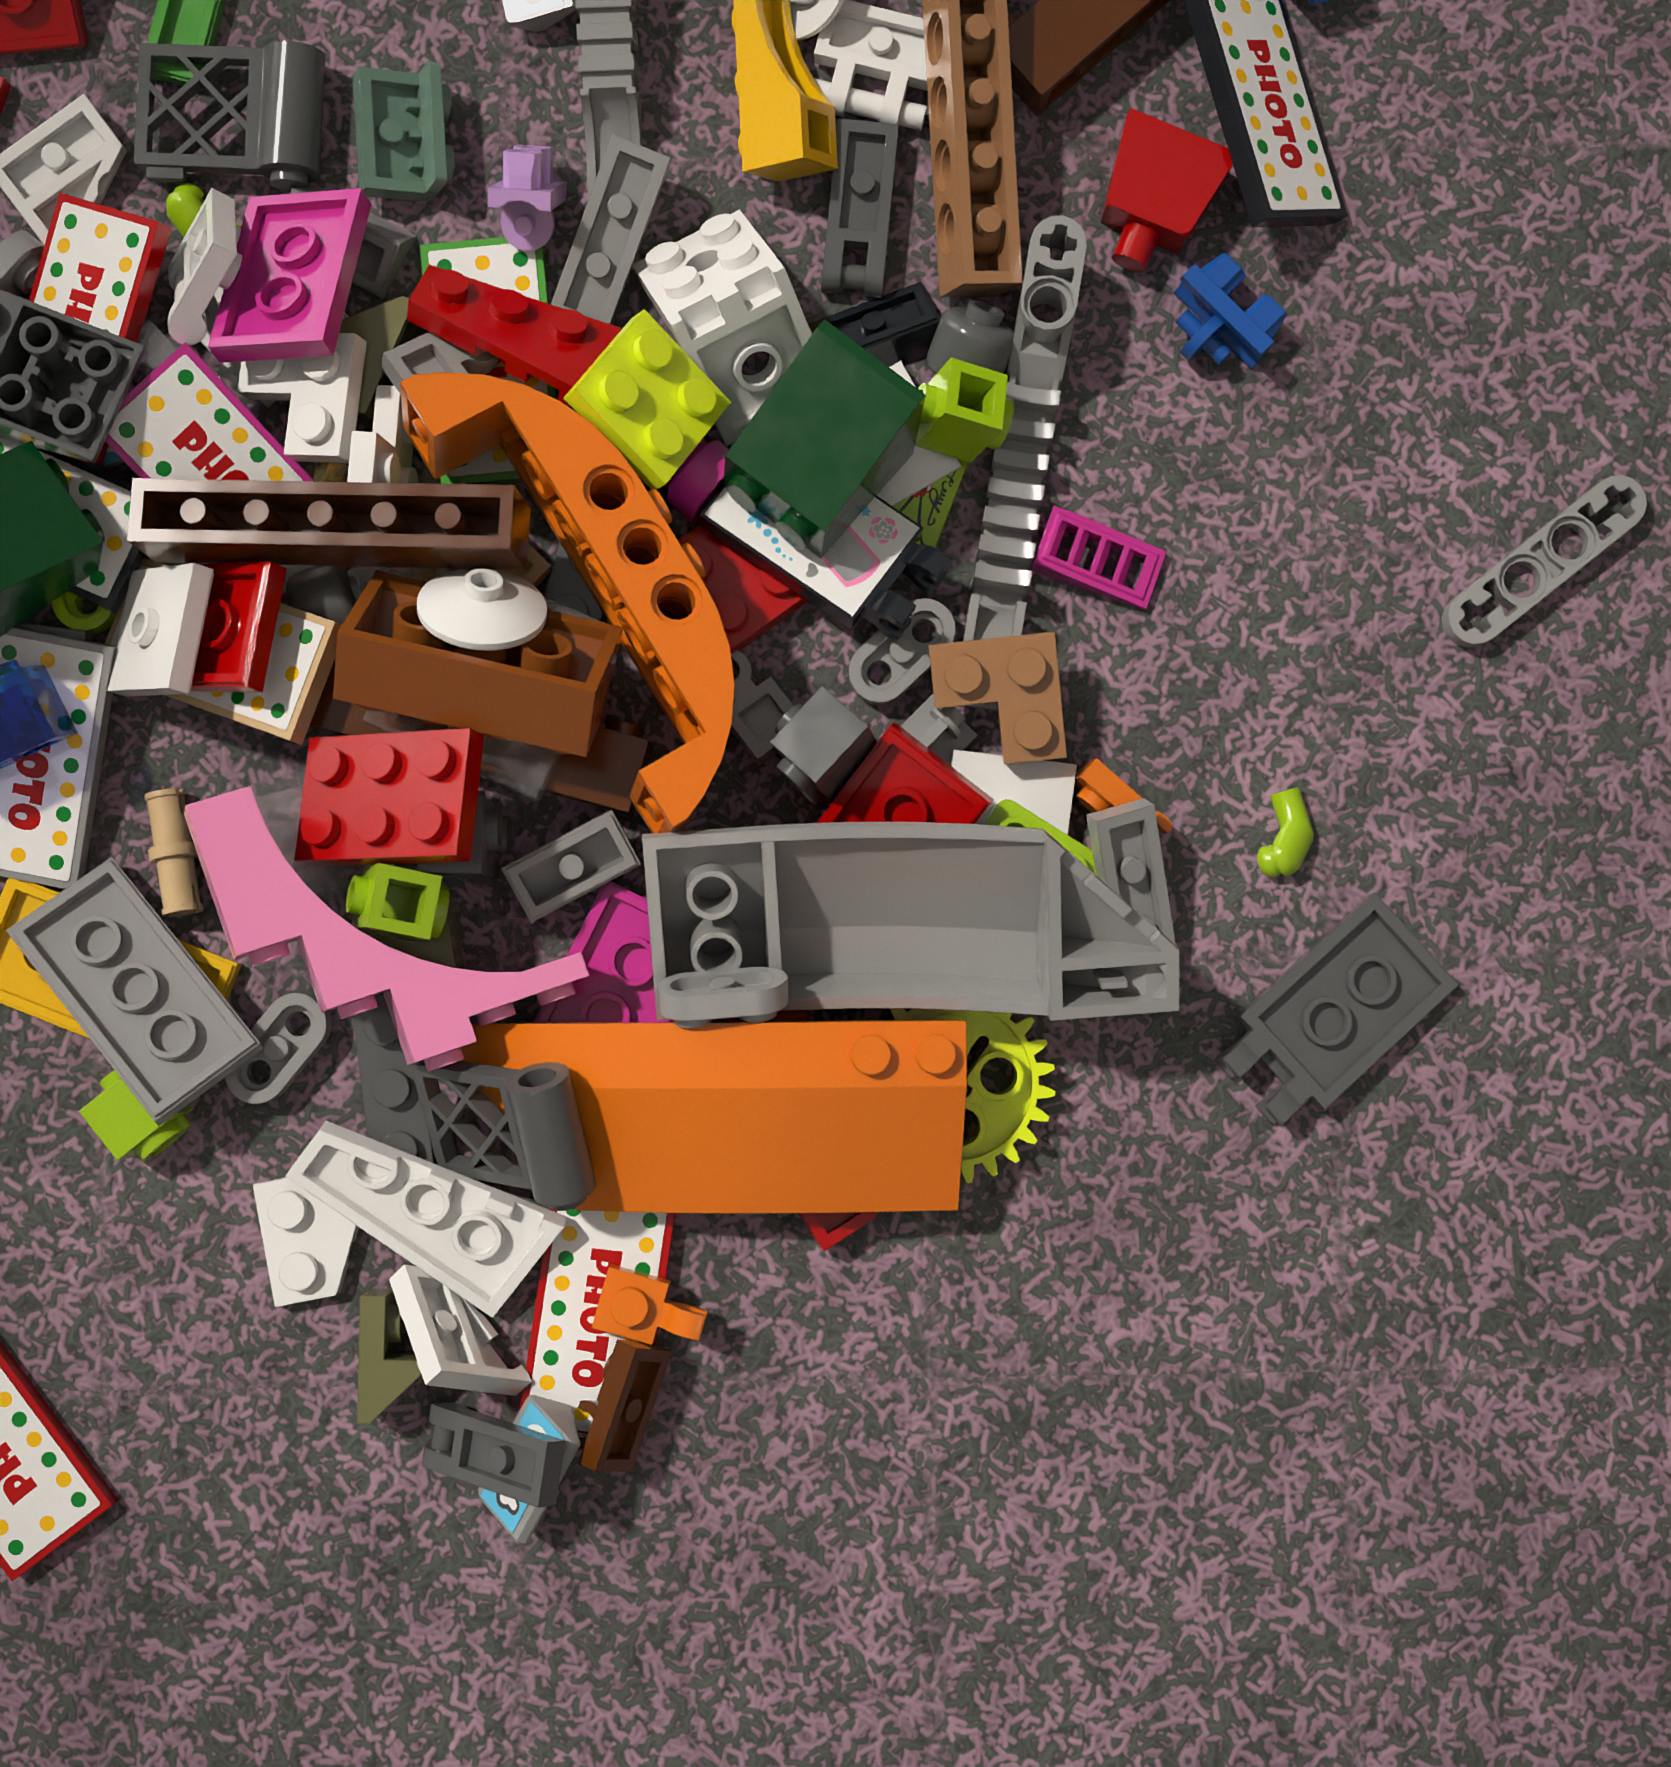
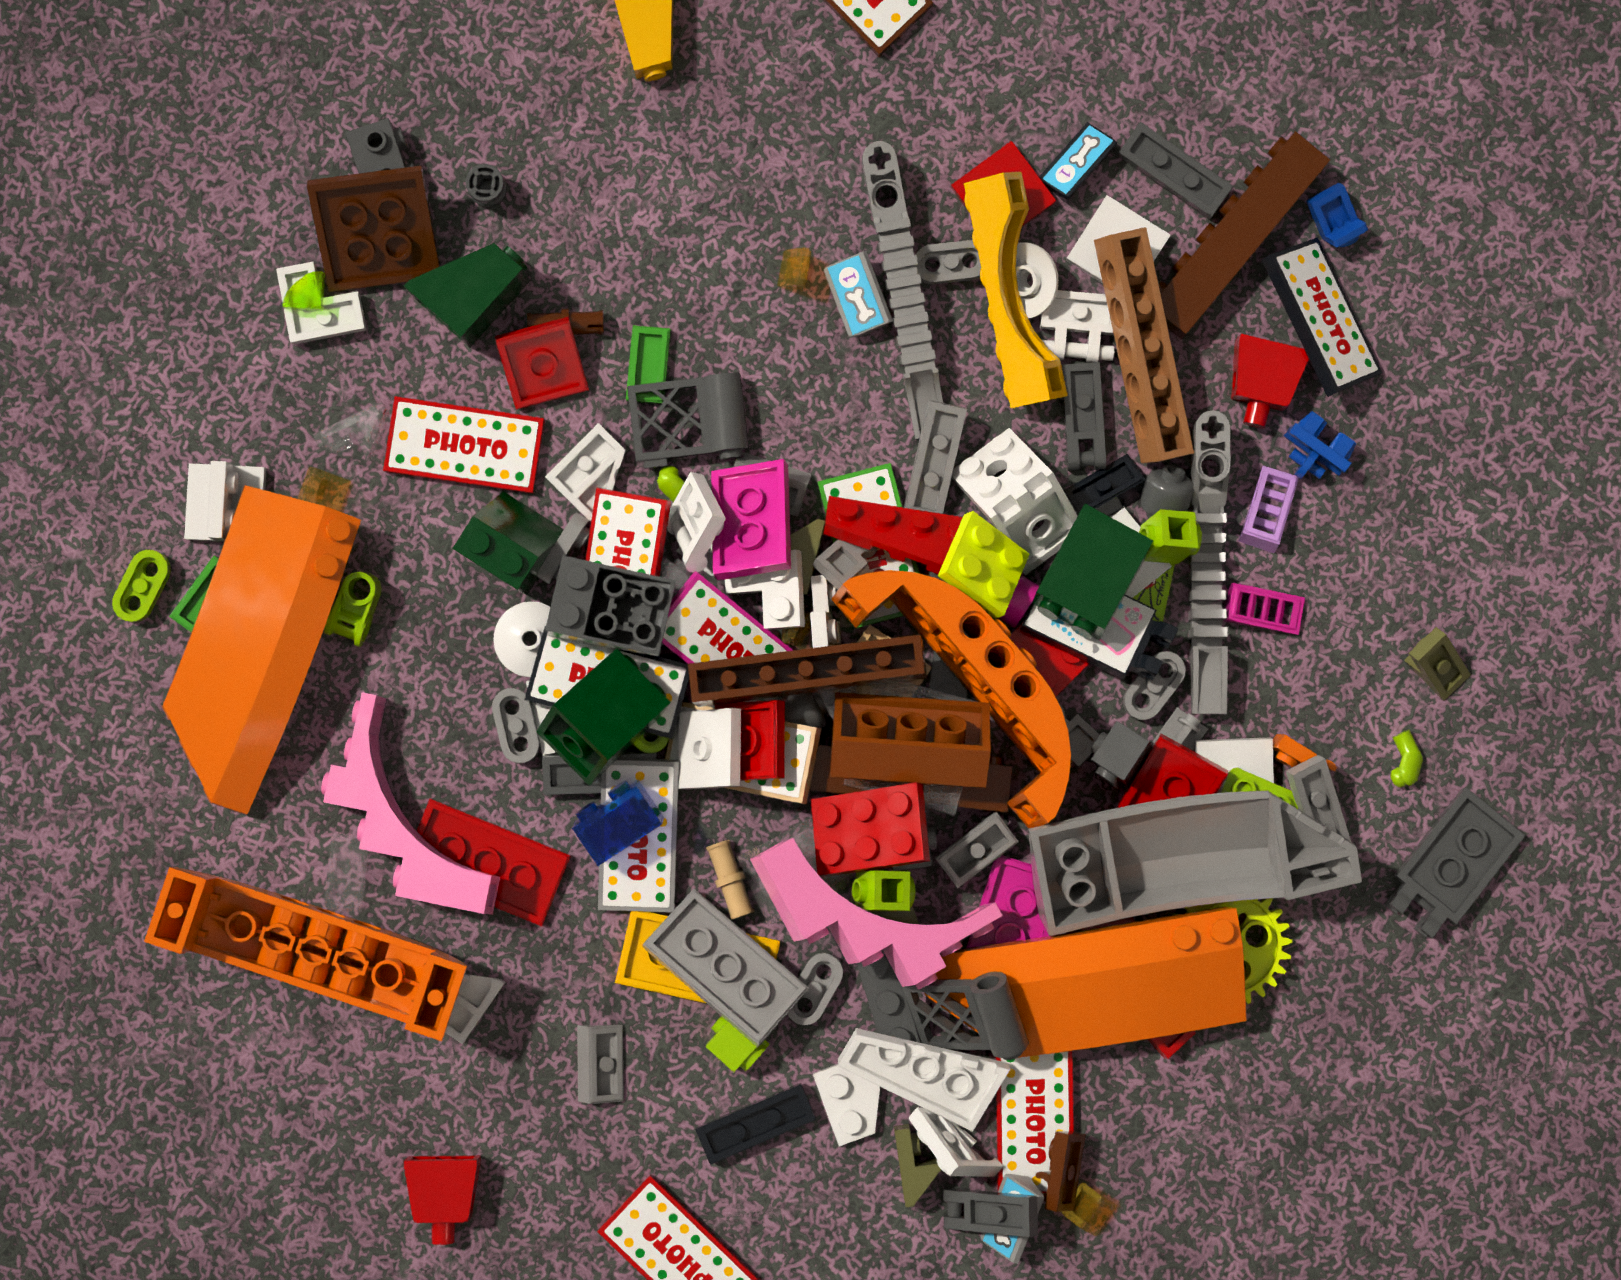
camera: 10 degrees left, 0 degrees up
(147, 1249) = (755, 1123): none -> black plate
(402, 132) = (796, 414): sand green bracket -> none
(481, 609) = (907, 708): white dish -> none
(528, 196) = (882, 443): lavender hips -> none
(636, 1305) = (1060, 1110): orange plate -> none
(661, 1474) = (1090, 1209): none -> clear yellow slope
(744, 993) = (1091, 914): light grey plate -> none
(1016, 674) = (1227, 691): medium nougat plate -> none
(1113, 437) = (1259, 538): none -> lavender slope
(1362, 686) = (1438, 663): none -> olive slope
(1543, 562) = (1536, 567): light grey beam -> none

